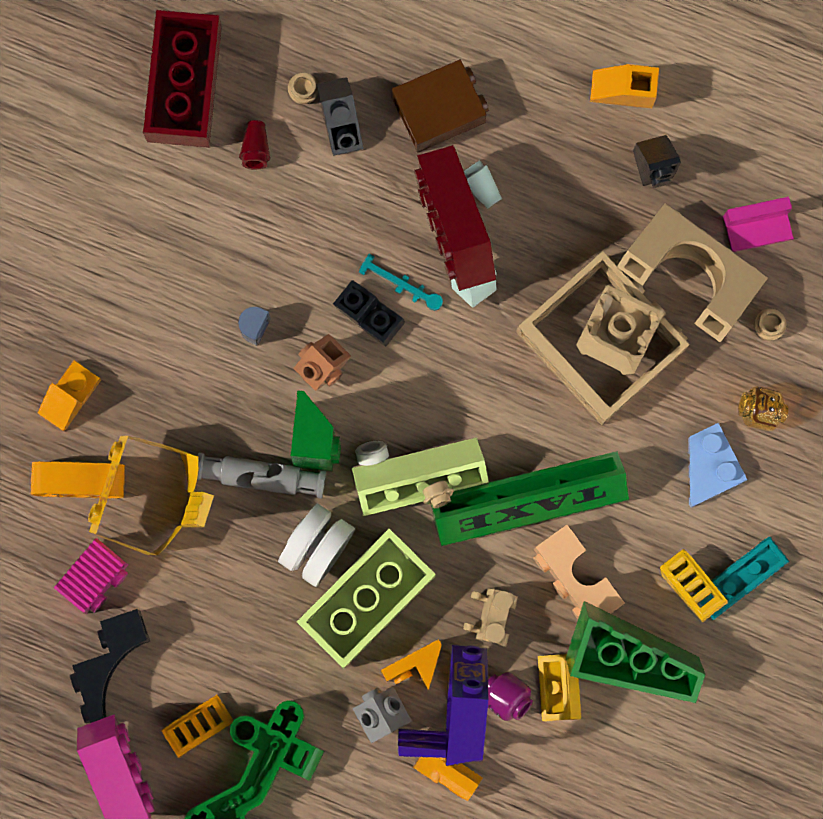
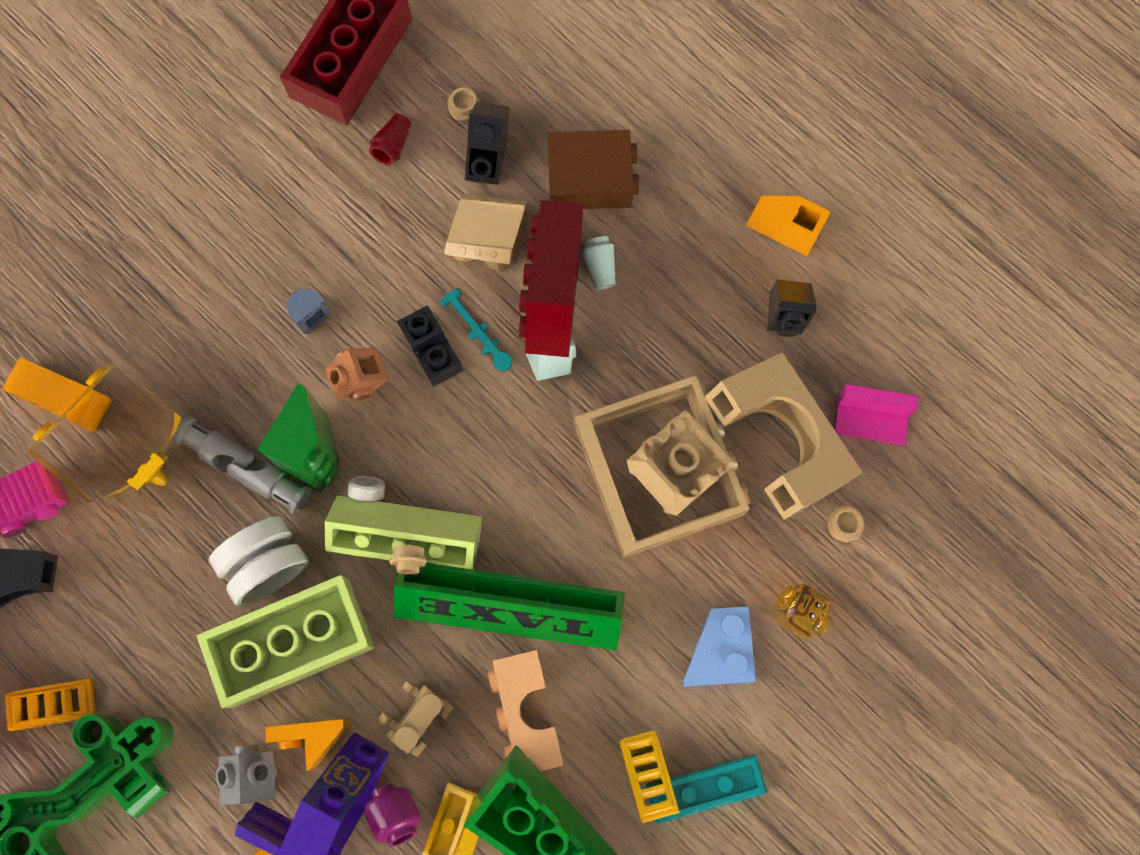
camera: 25 degrees right, 5 degrees down
(68, 395) = (89, 310): light orange slope -> none
(372, 193) = (487, 230): none -> tan slope

